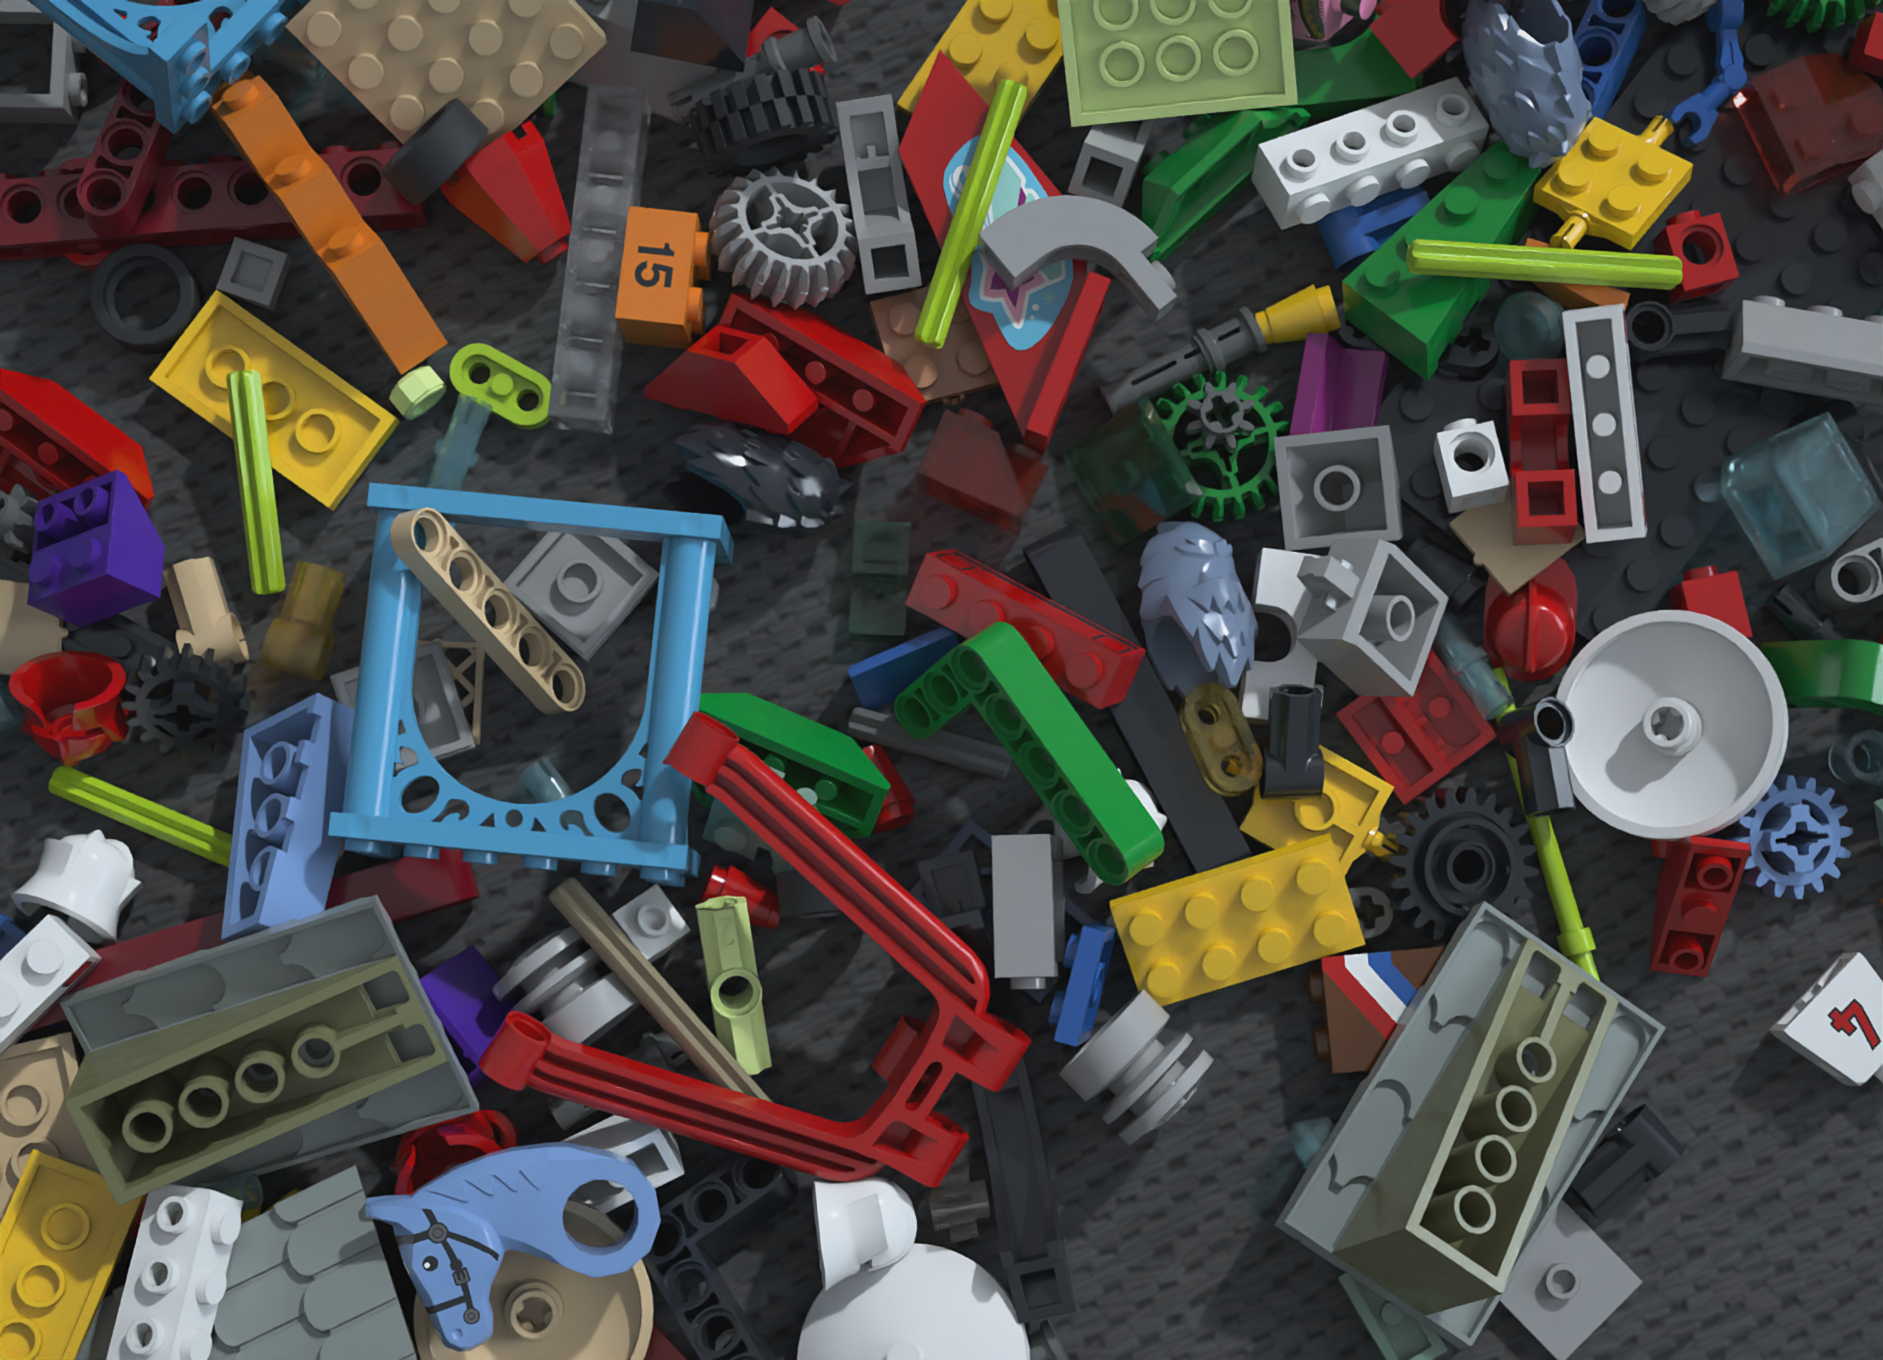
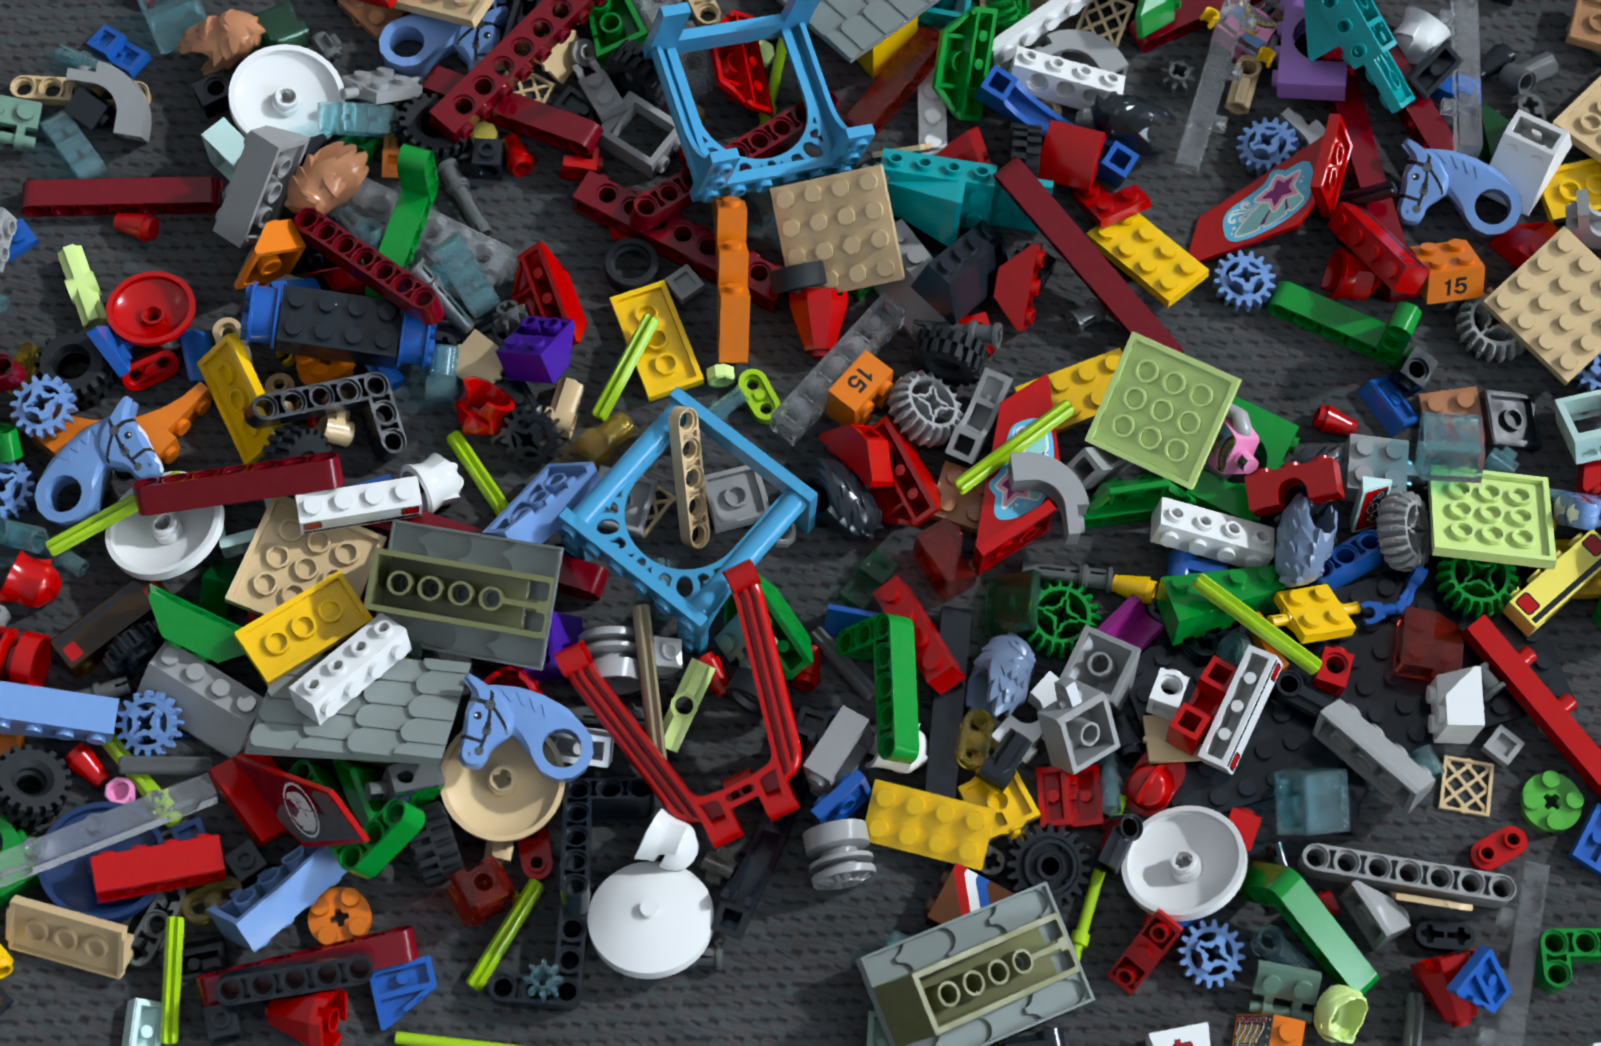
camera: 30 degrees right, 15 degrees down
(1225, 403) = (1066, 609): dark grey gear -> none

